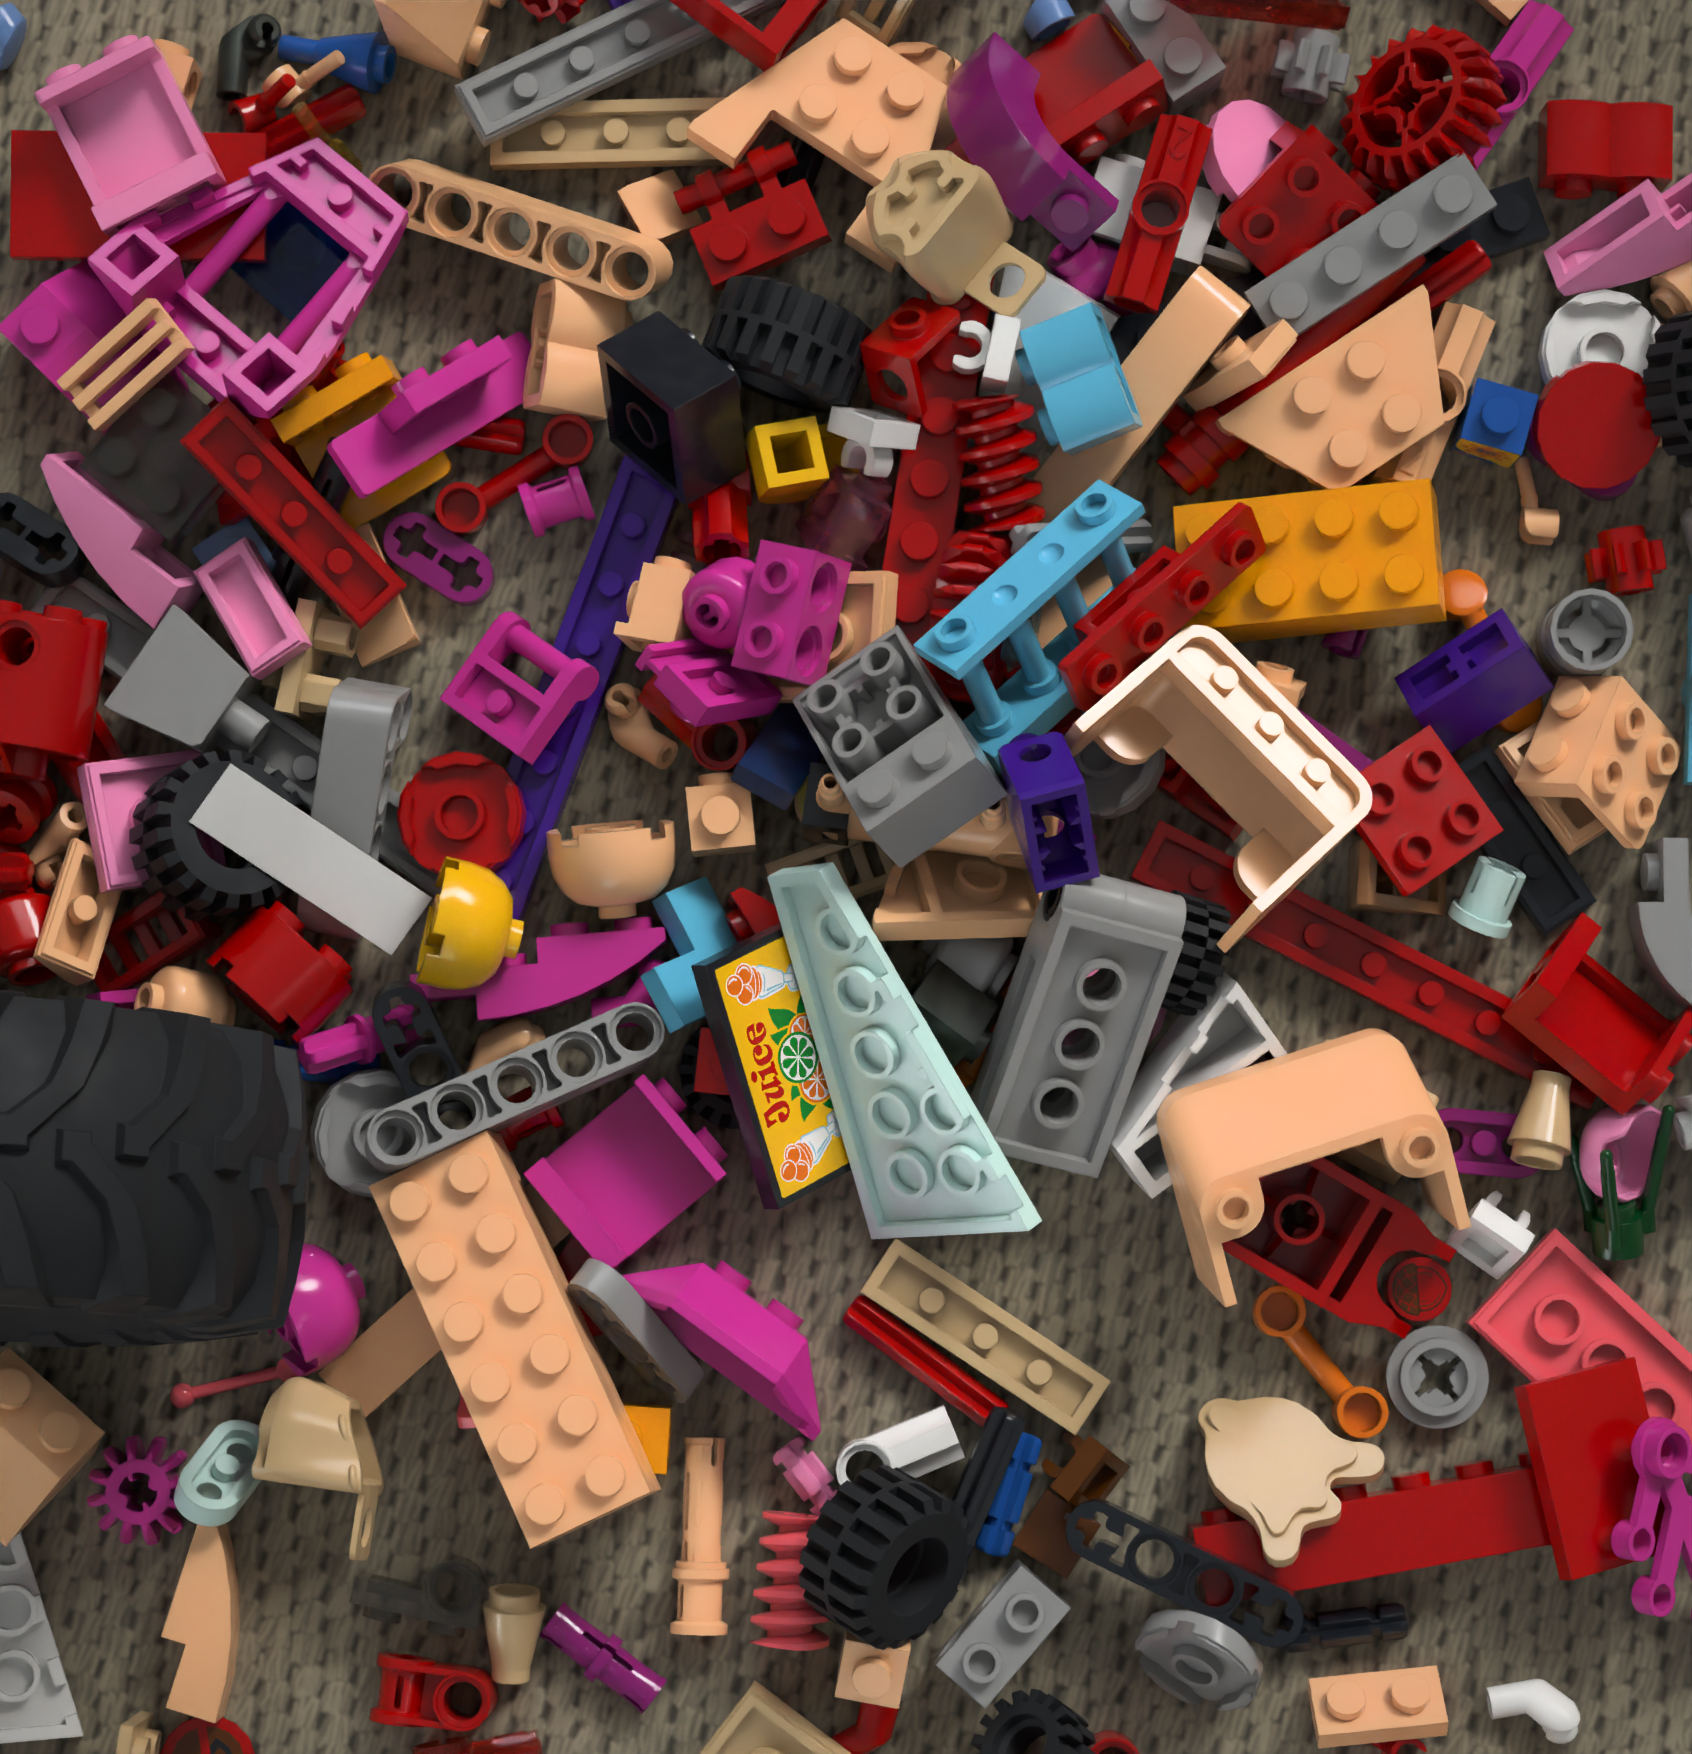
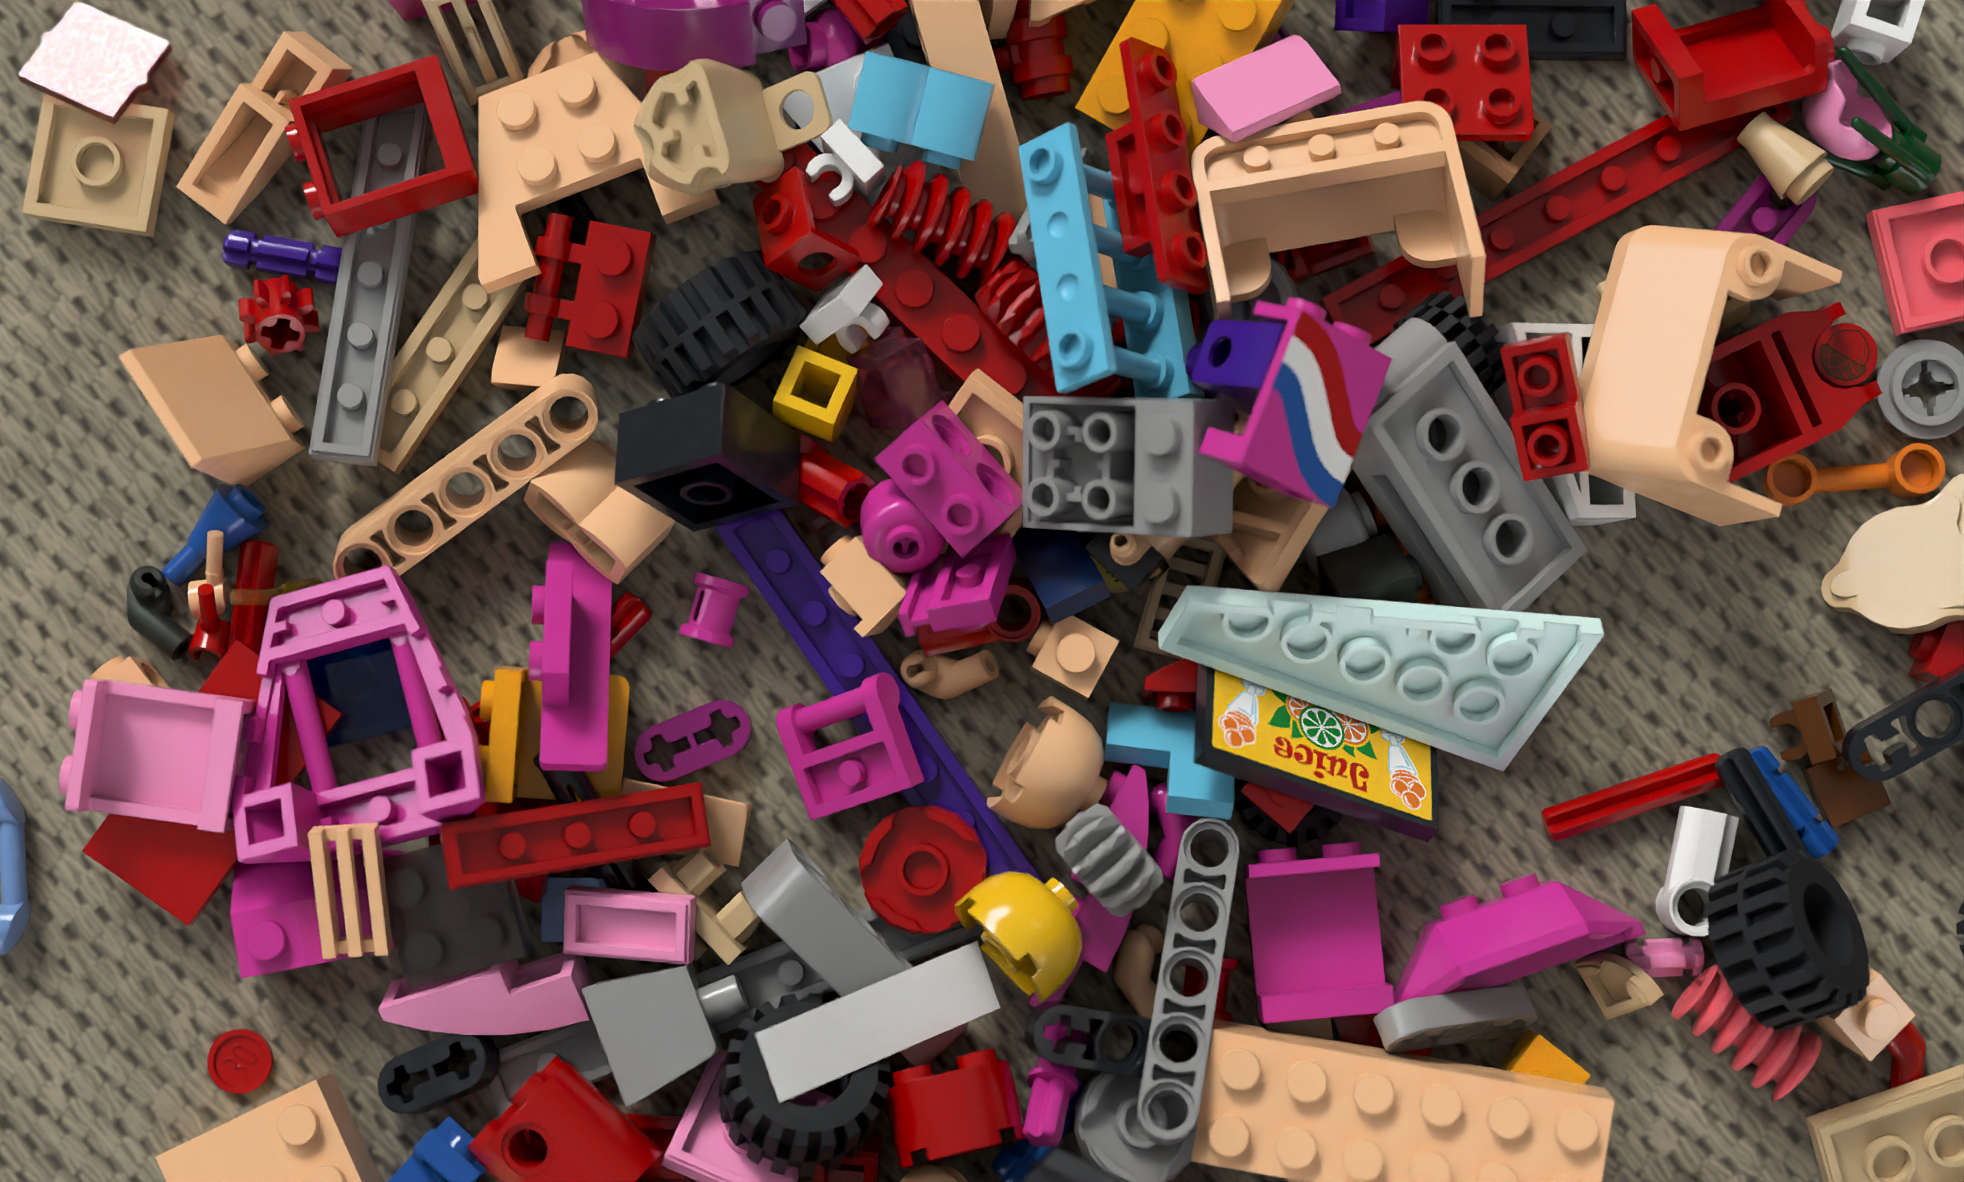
camera: 50 degrees left, 0 degrees up
(465, 508) = (670, 569): red bar -> none
(567, 954) = (1109, 860): none -> light grey gear
(700, 1569) = (1680, 1097): light nougat pin -> none
(759, 1450) = (1617, 983): none -> tan tile
(985, 1336) = (1647, 733): tan plate -> none
(1001, 1633) = (1903, 887): light grey brick -> none
(1039, 852) = (1307, 408): none -> panel
(1186, 1058) = (1546, 407): none -> red slope
(1289, 646) = (1263, 88): none -> bright pink slope
(1488, 898) = (1567, 78): light aqua bush -> none
(1494, 1238) = (1856, 256): white tile -> none

